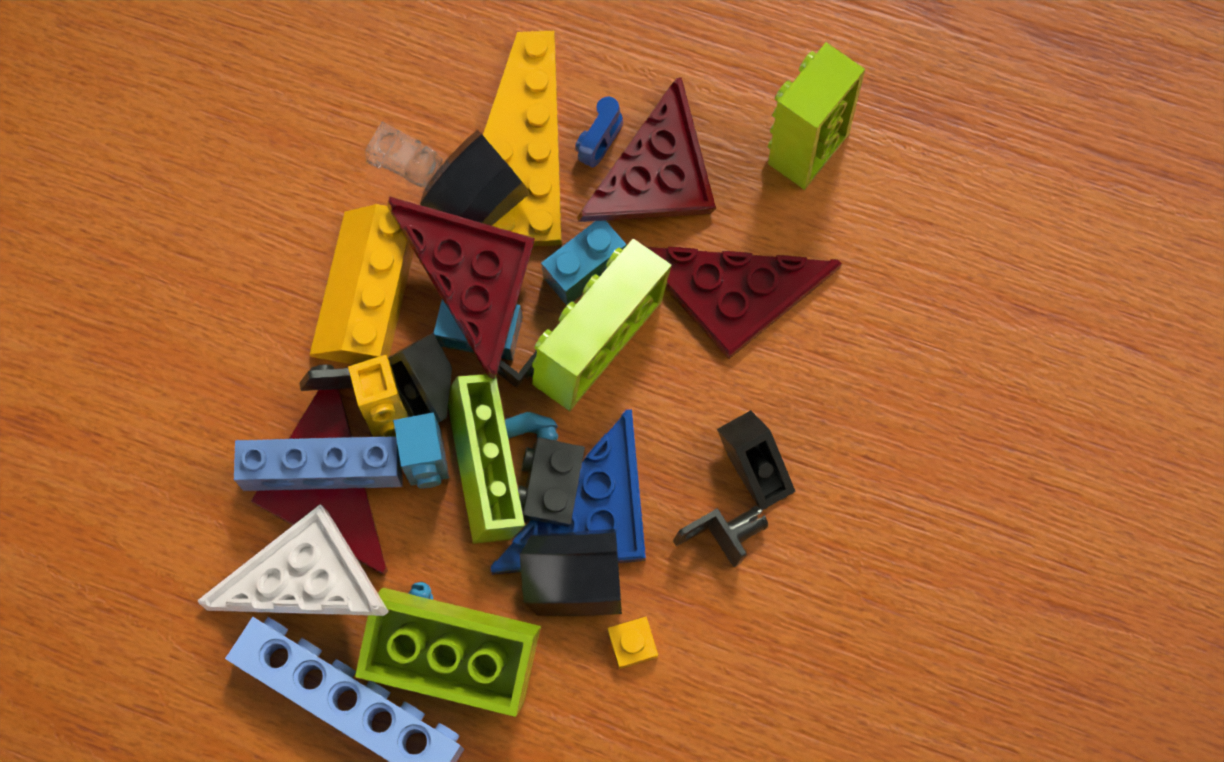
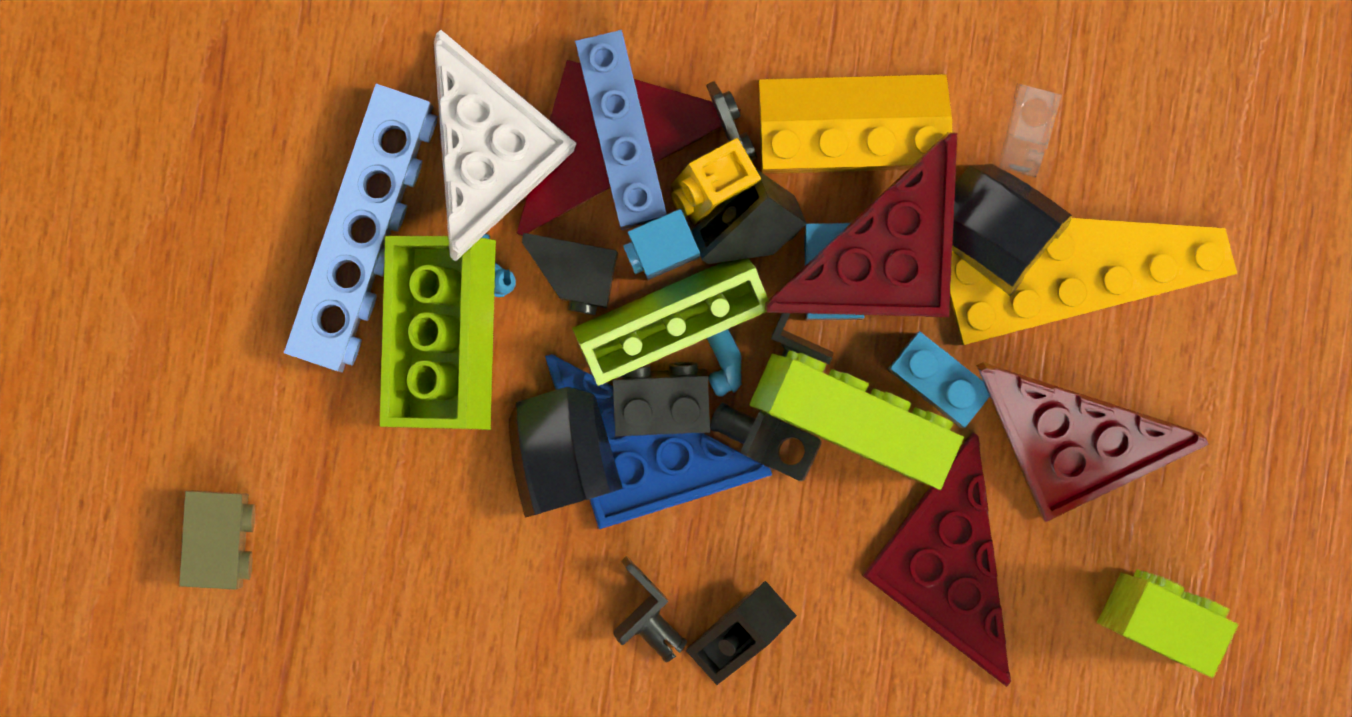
camera: 75 degrees right, 15 degrees up
(425, 531) = (574, 270): none -> pearl dark grey slope
(594, 143) = (1095, 356): blue plate -> none
(599, 408) = (764, 437): none -> pearl dark grey bracket
(632, 642) = (500, 535): yellow plate -> none

